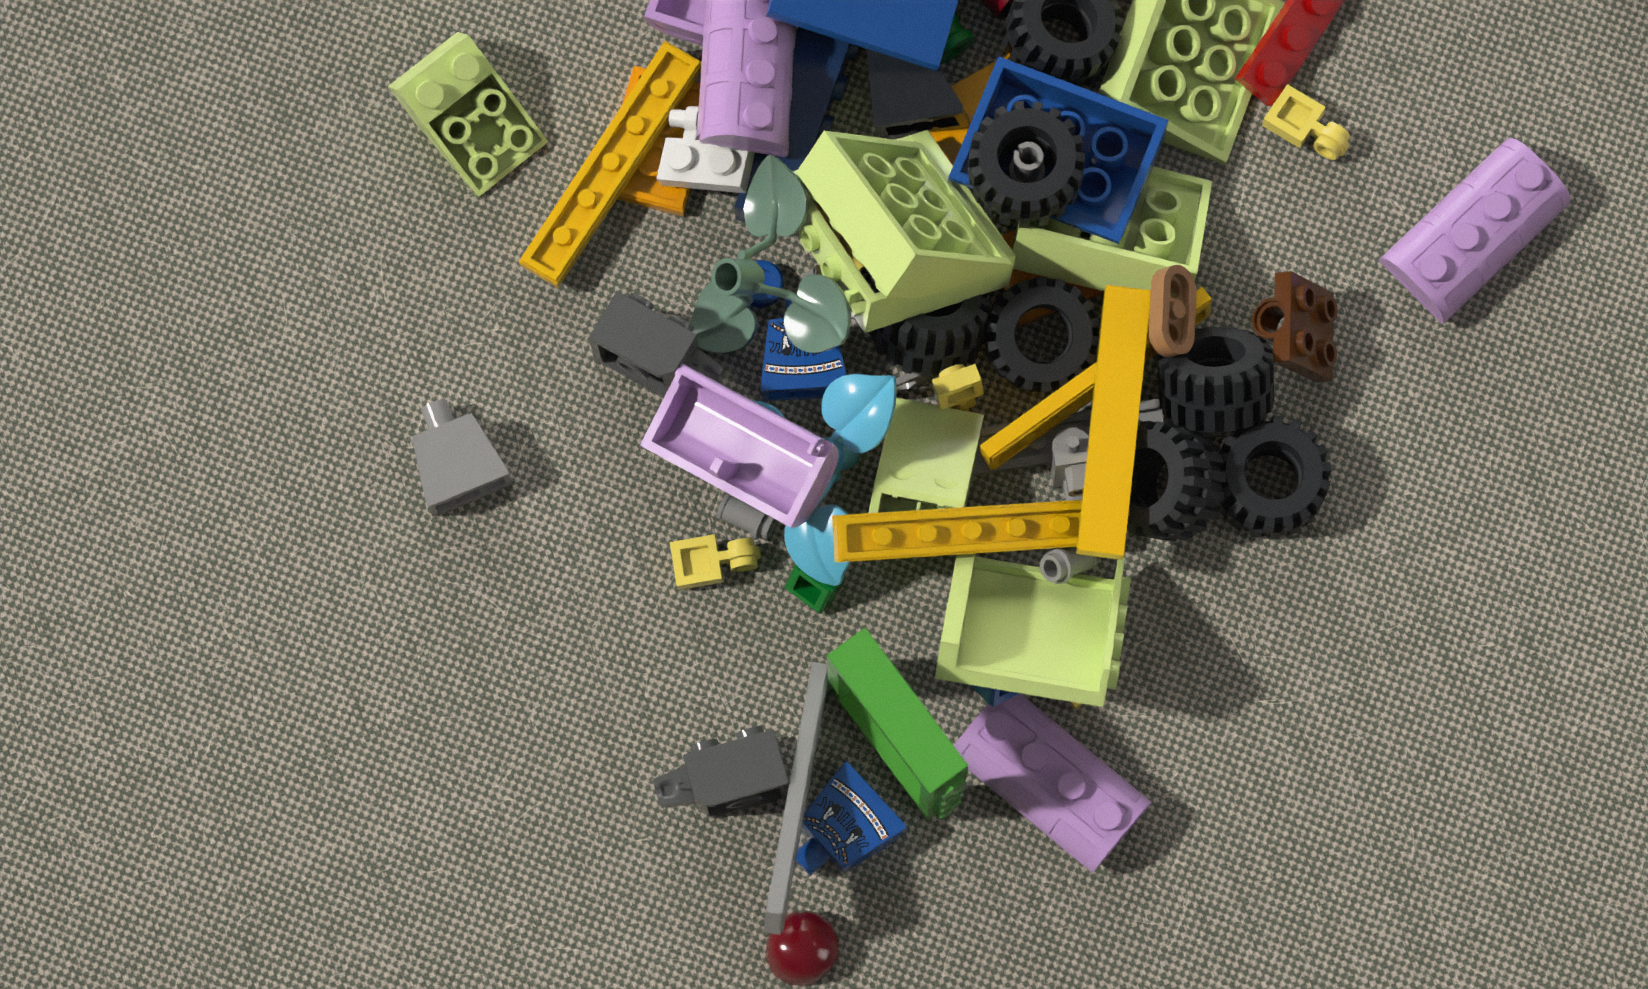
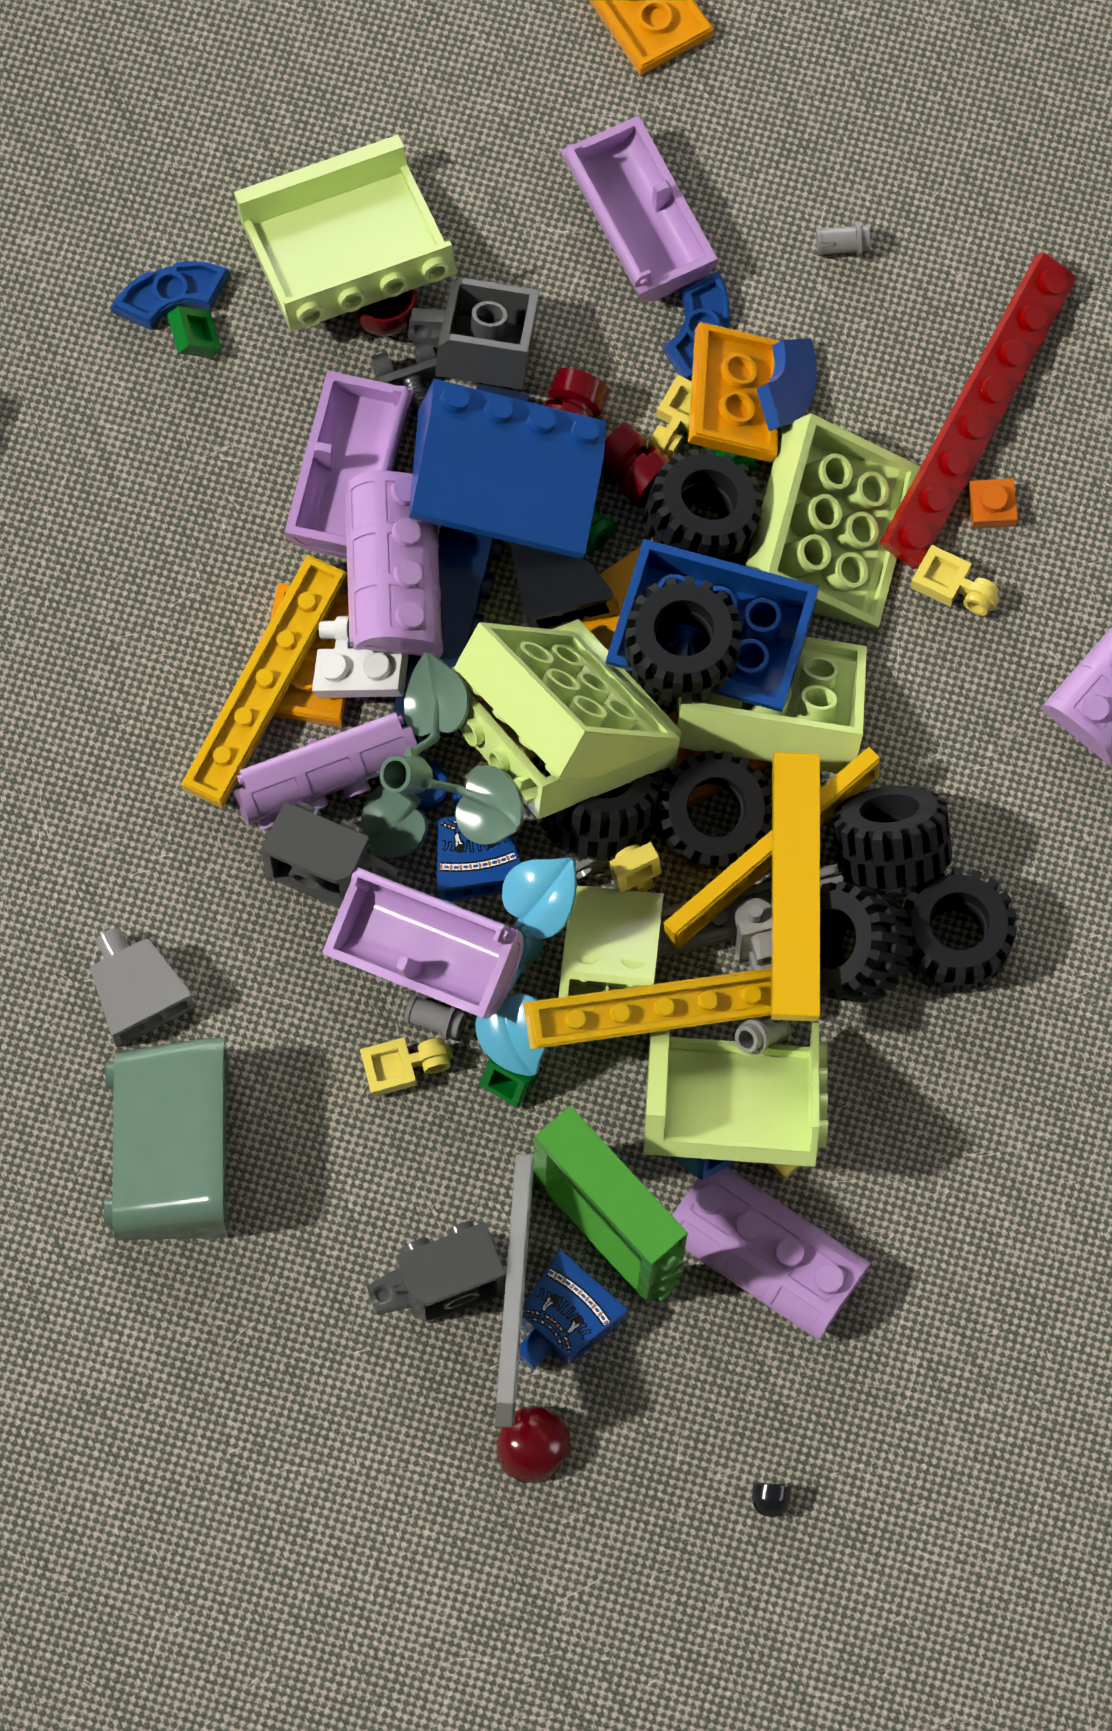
camera: 10 degrees left, 5 degrees down
(468, 113) = (115, 643): yellowish green slope -> none
(474, 616) = (169, 1141): none -> sand green windscreen
(658, 260) = (320, 769): none -> lavender container
(1027, 164) = (684, 637): light grey pin -> none
(1172, 311) = (842, 772): medium nougat plate -> none
(1306, 335) = (977, 786): reddish brown plate -> none
(1353, 46) = (992, 503): none -> orange plate

